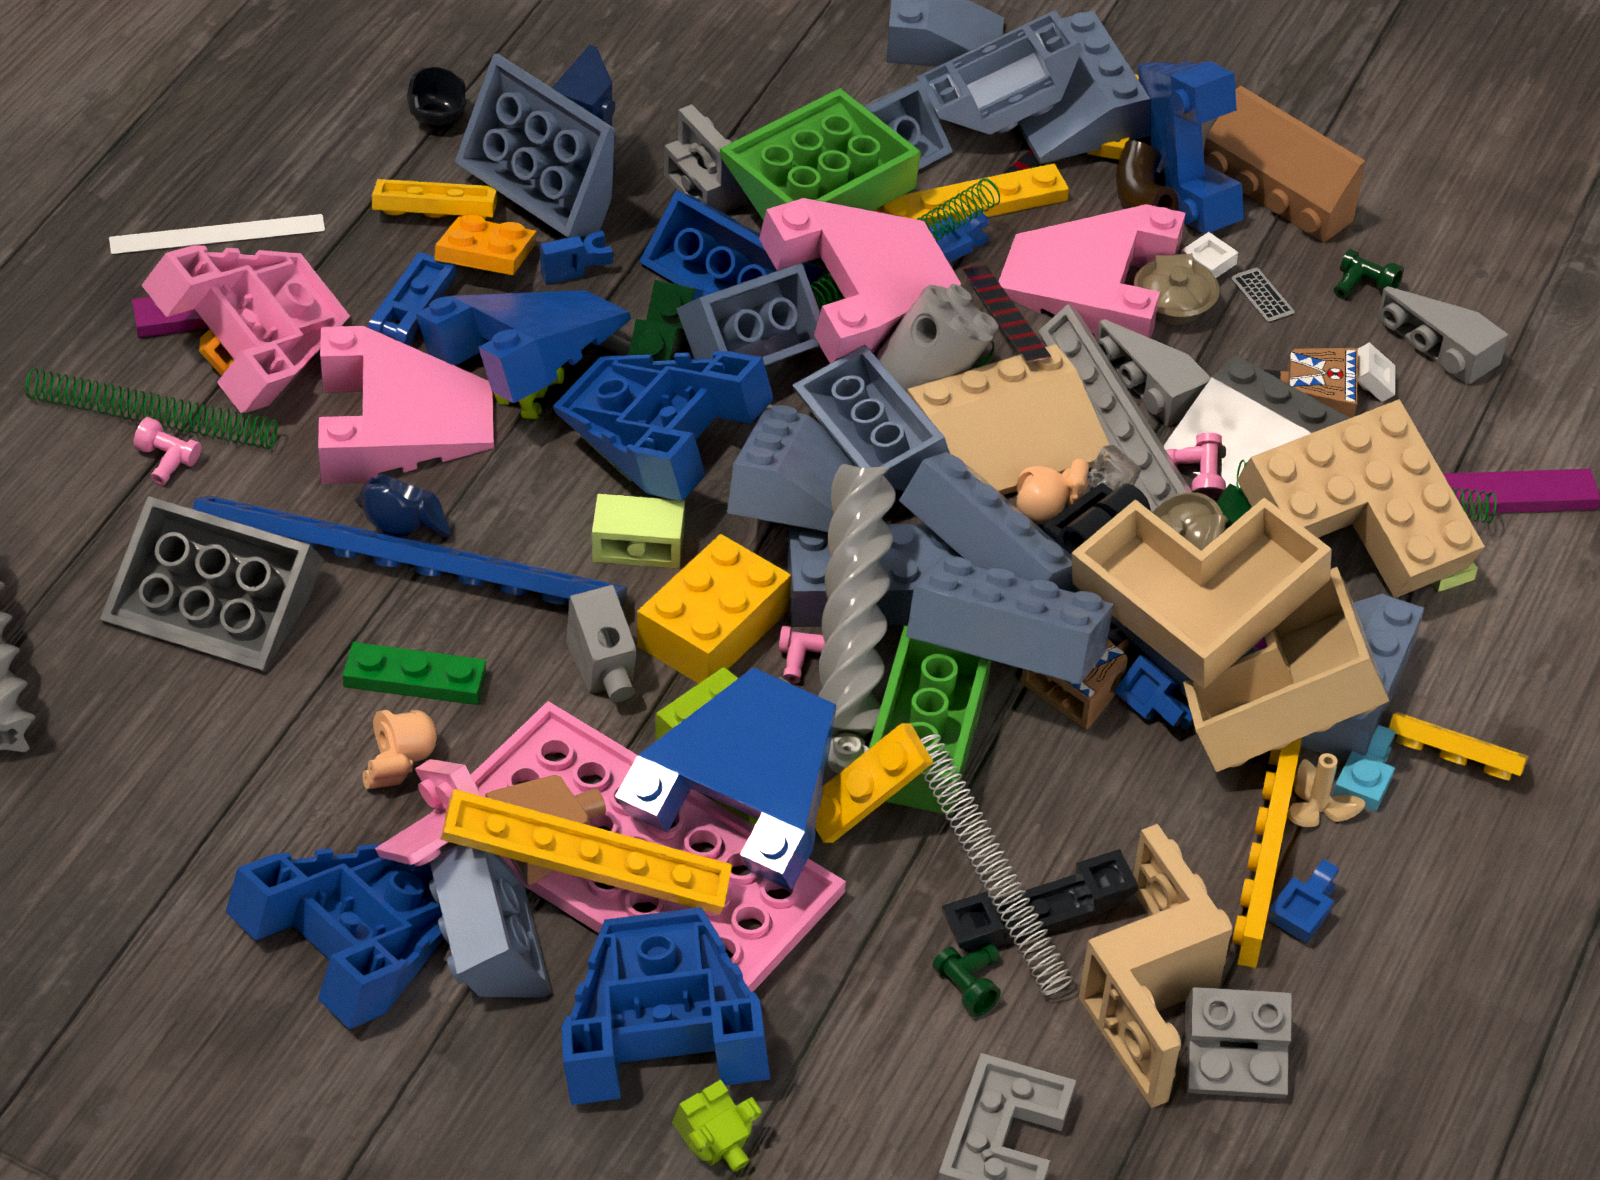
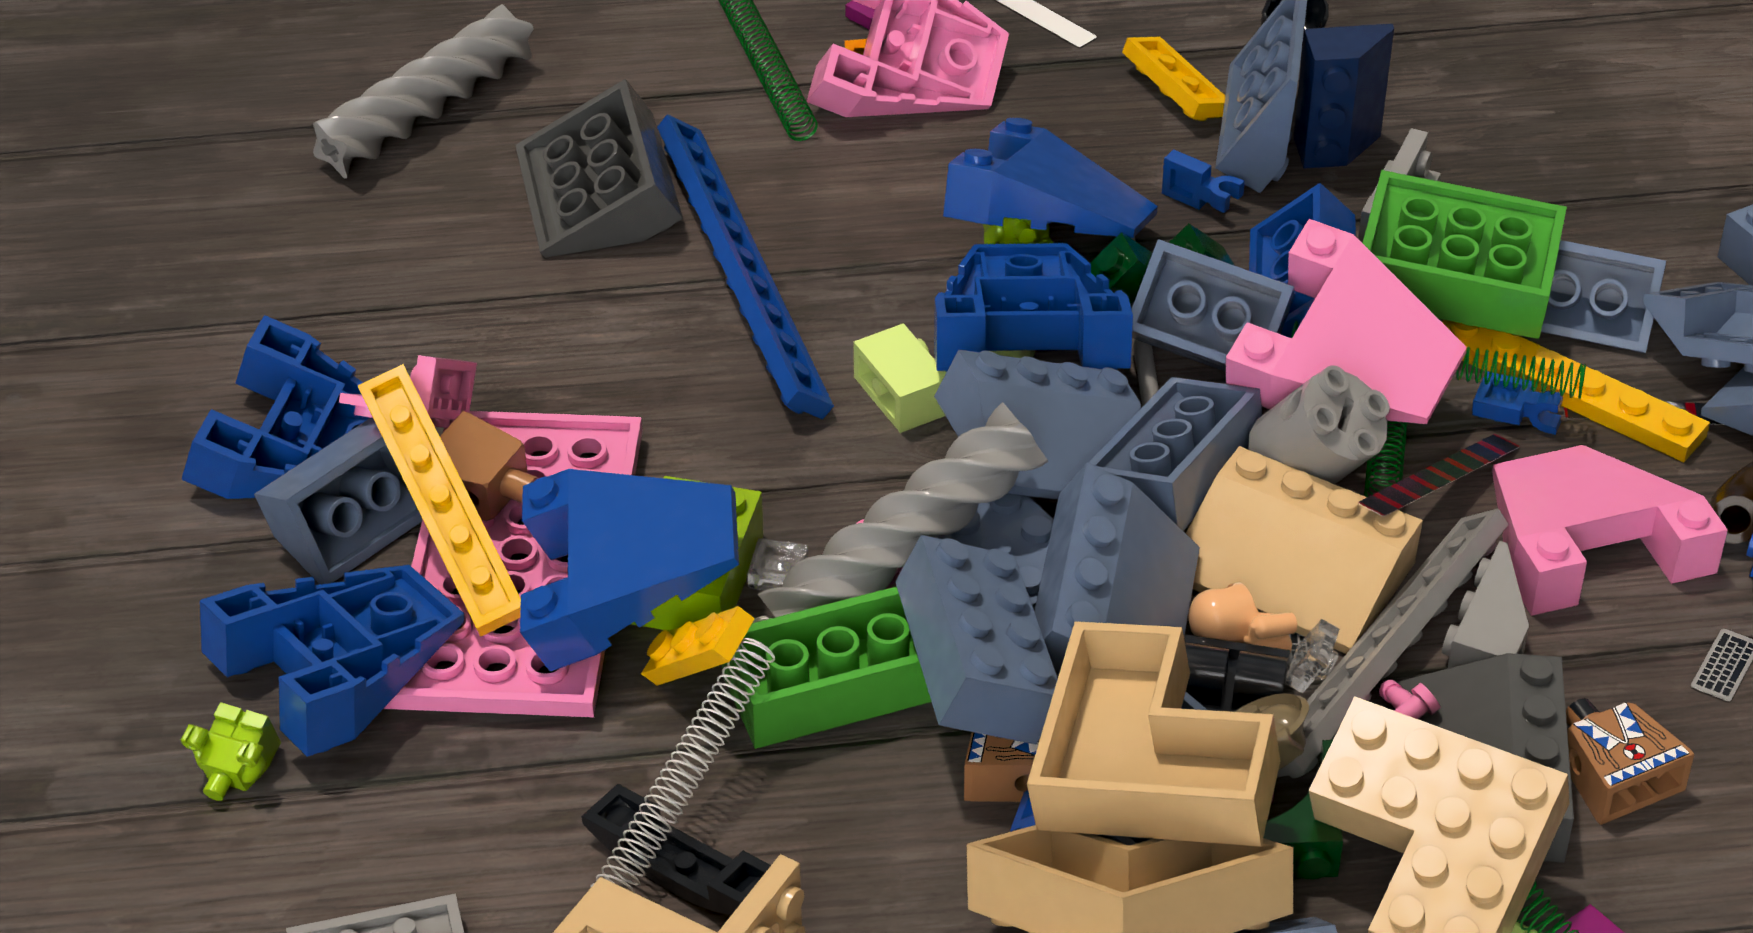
camera: 60 degrees right, 5 degrees down
(151, 436) = (731, 68): bright pink piece -> none
(400, 507) = (780, 226): dark blue piece -> none
(401, 741) = (519, 356): light nougat piece -> none
(410, 407) = (891, 178): bright pink wedge -> none
(413, 292) = (1065, 119): blue plate -> none
(414, 673) = (615, 335): green plate -> none
(485, 244) = (1149, 127): light orange plate -> none
(602, 643) = (730, 411): light grey torso -> none
(713, 610) = (840, 461): yellow brick -> none
(978, 994) = (536, 864): dark green piece -> none
(1183, 286) = (1635, 585): dark tan piece -> none
(1212, 254) = (1716, 592): white plate -> none
(1375, 372) = (1696, 795): white plate -> none

